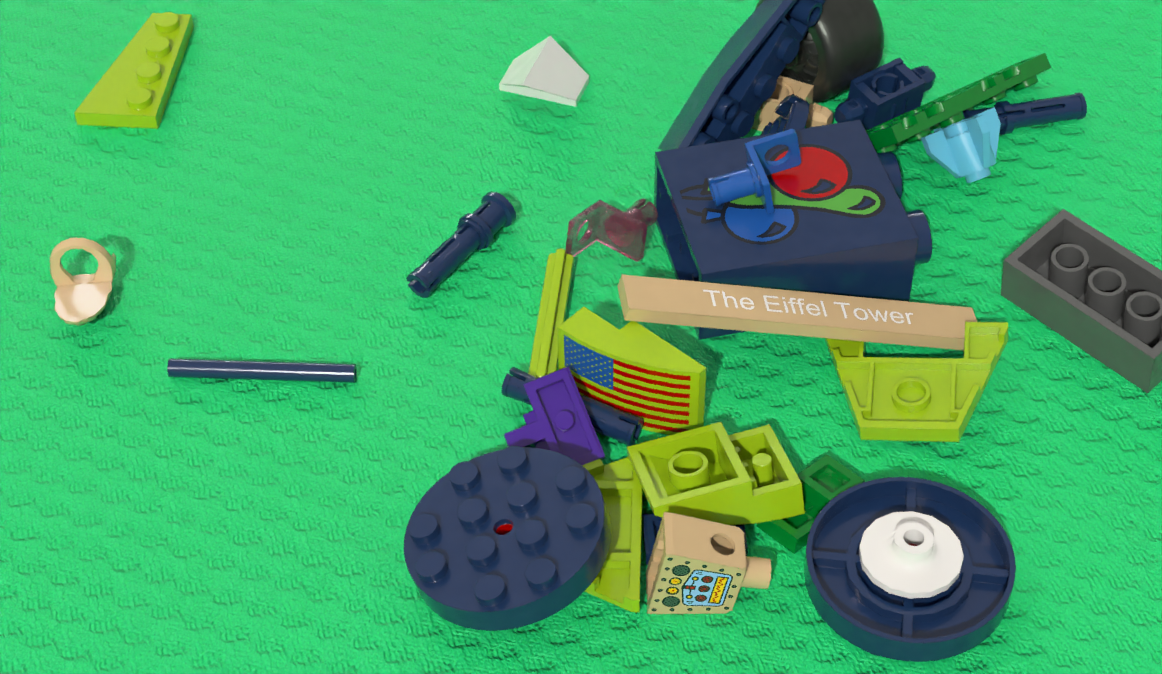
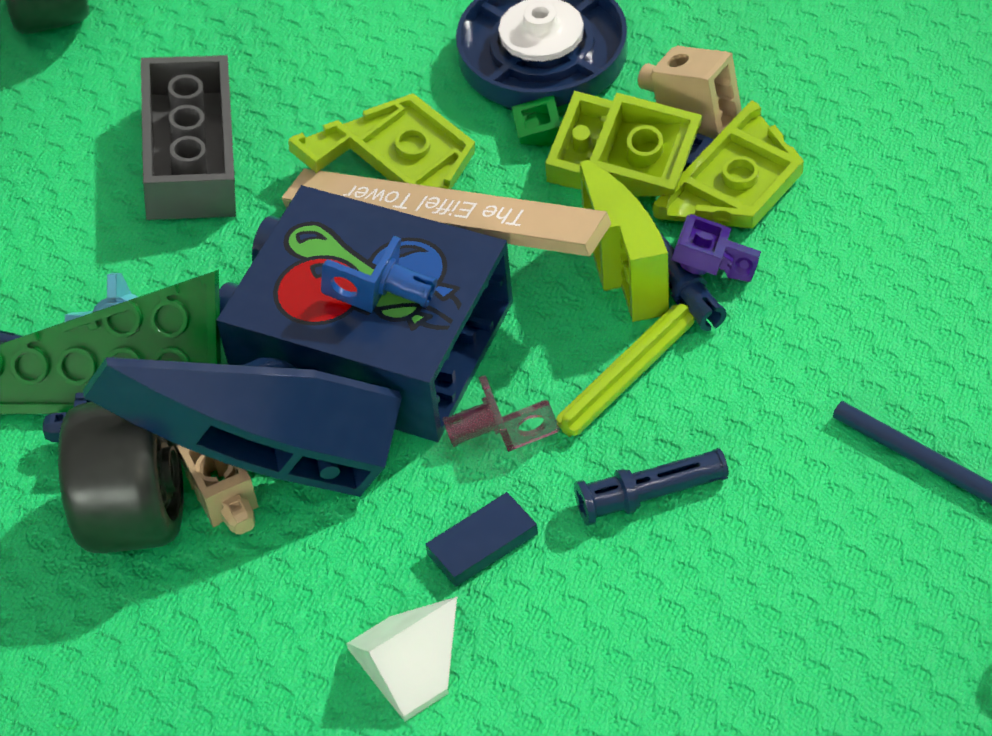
camera: 140 degrees left, 5 degrees up
(507, 538) = (821, 167): dark blue piece -> none
(556, 166) = (481, 539): none -> dark blue tile

